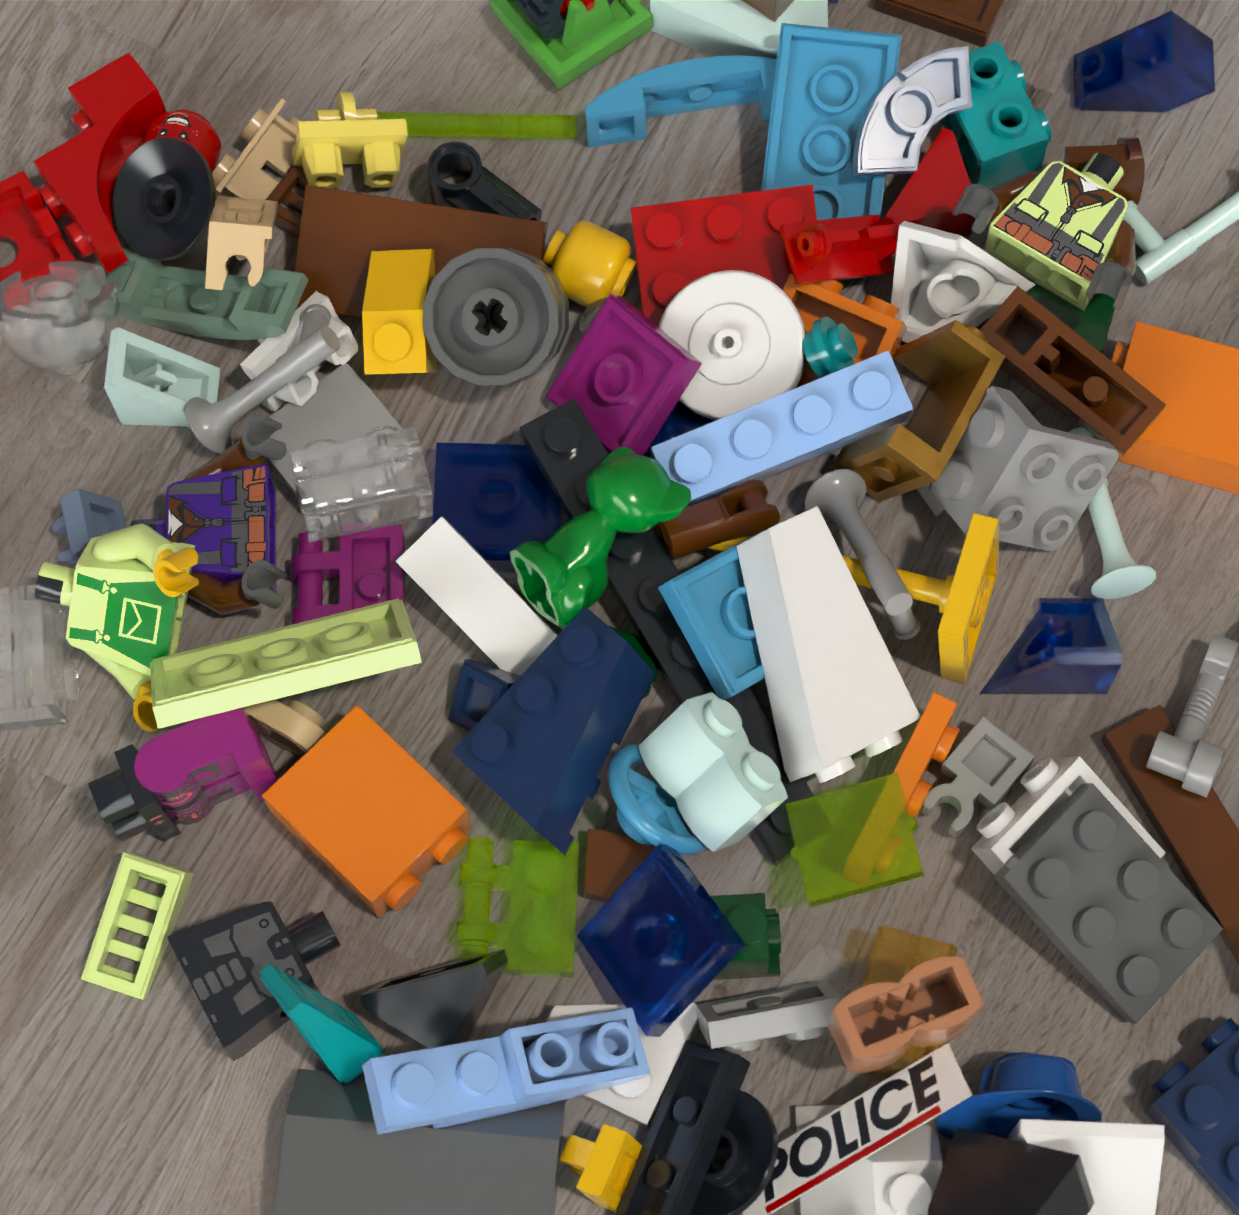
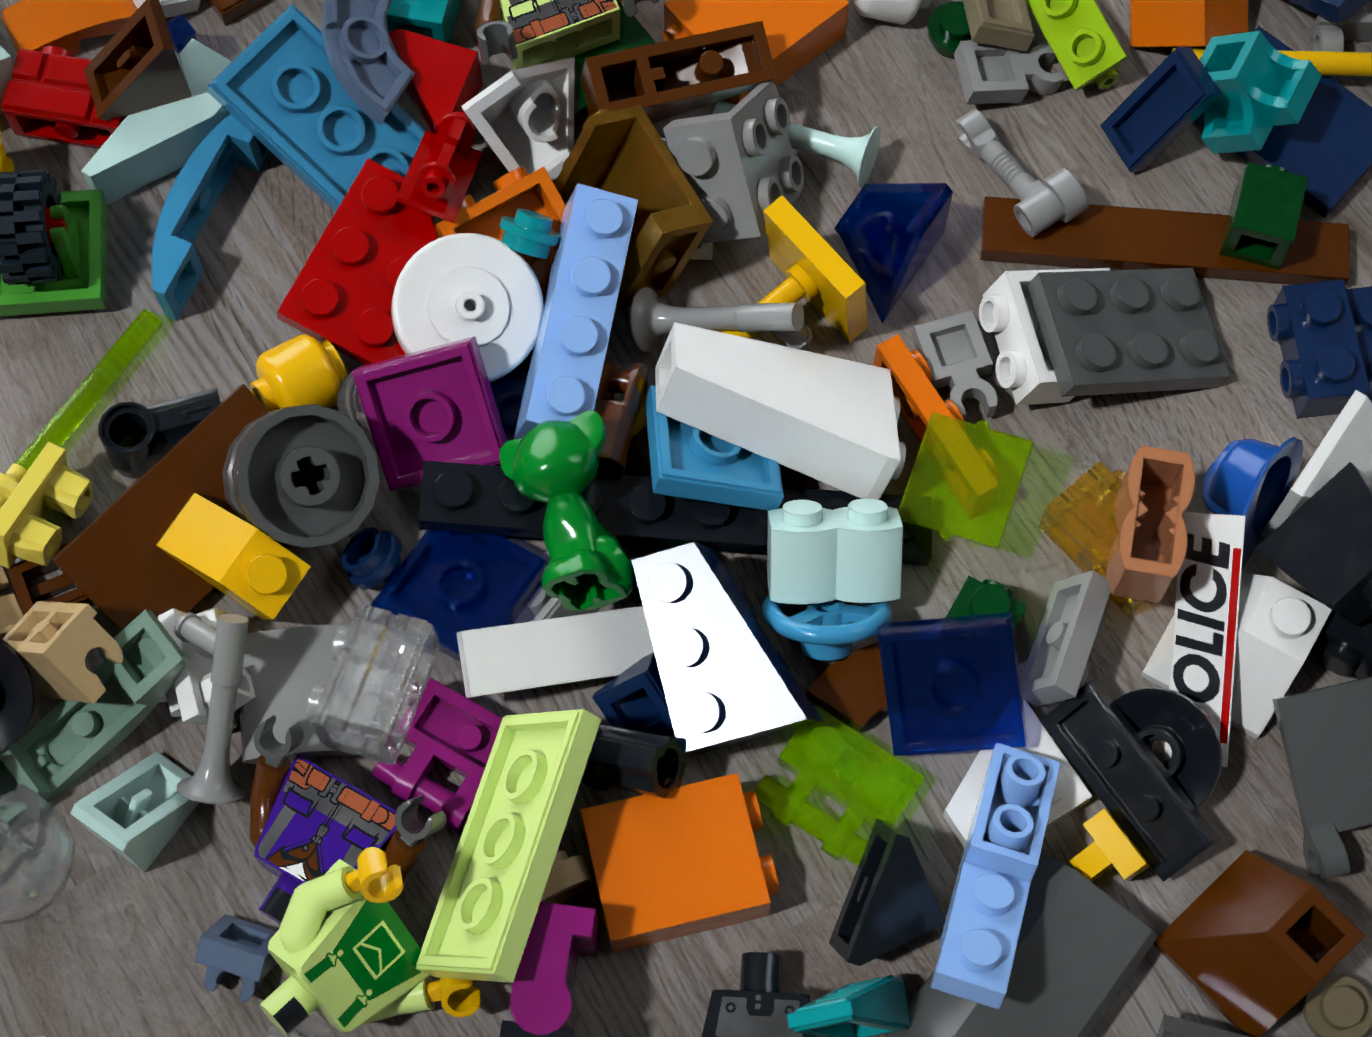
camera: 60 degrees left, 0 degrees up
(421, 711) = (634, 762): none -> black piece
(477, 418) = (372, 557): none -> dark blue plate

